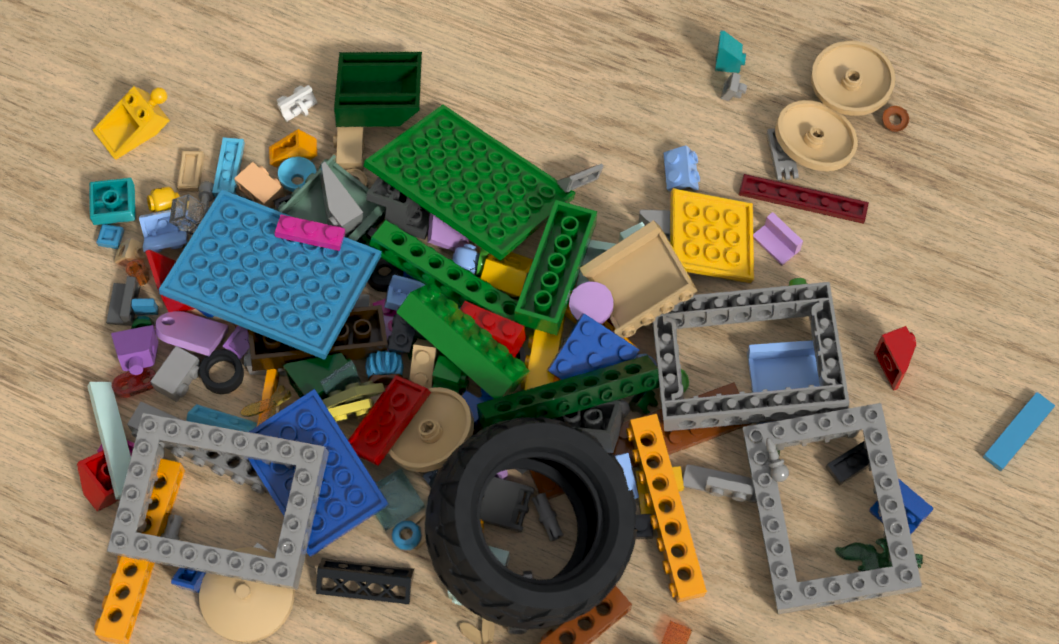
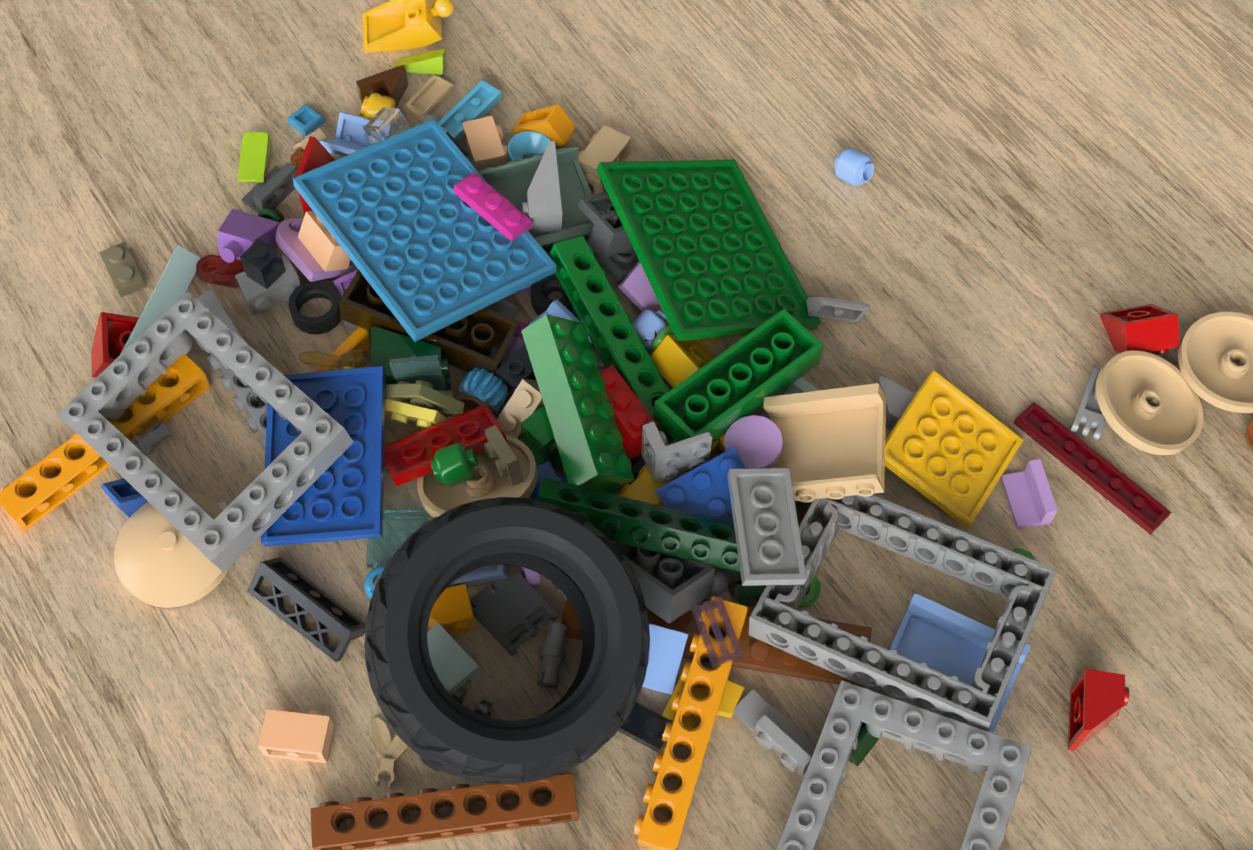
camera: 30 degrees right, 5 degrees down
(56, 422) = (122, 269): none -> dark tan plate
(94, 285) = (254, 156): none -> lime slope
(101, 205) = (328, 86): teal brick -> none
(145, 306) = (287, 202): dark azure tile -> none
(154, 177) = (387, 83): none -> reddish brown slope
(169, 362) = (262, 263): none -> black brick
(170, 145) = (425, 63): none -> lime slope
(199, 323) = (322, 244): none -> light nougat brick
(212, 417) = (274, 350): medium azure plate -> none
(297, 103) = (581, 84): white hips -> none
(377, 88) = (668, 104): dark green slope -> none
(410, 428) = (454, 464): none -> green head
(446, 407) = (505, 459): none -> dark tan plate
(528, 67) = (854, 167): none -> light blue head
(540, 348) = (669, 461): none -> light grey bracket
(633, 428) = (708, 608): none -> tile
(640, 355) = (766, 527): none -> light grey plate
(681, 169) = (962, 359): light blue bracket -> none
(729, 54) = (1097, 262): teal slope -> none
(733, 87) = (1081, 303): light grey tile -> none
(779, 471) = (851, 756): light grey bar -> none
(781, 86) = (1142, 329): none -> red slope
(849, 464) = (950, 804): black plate -> none

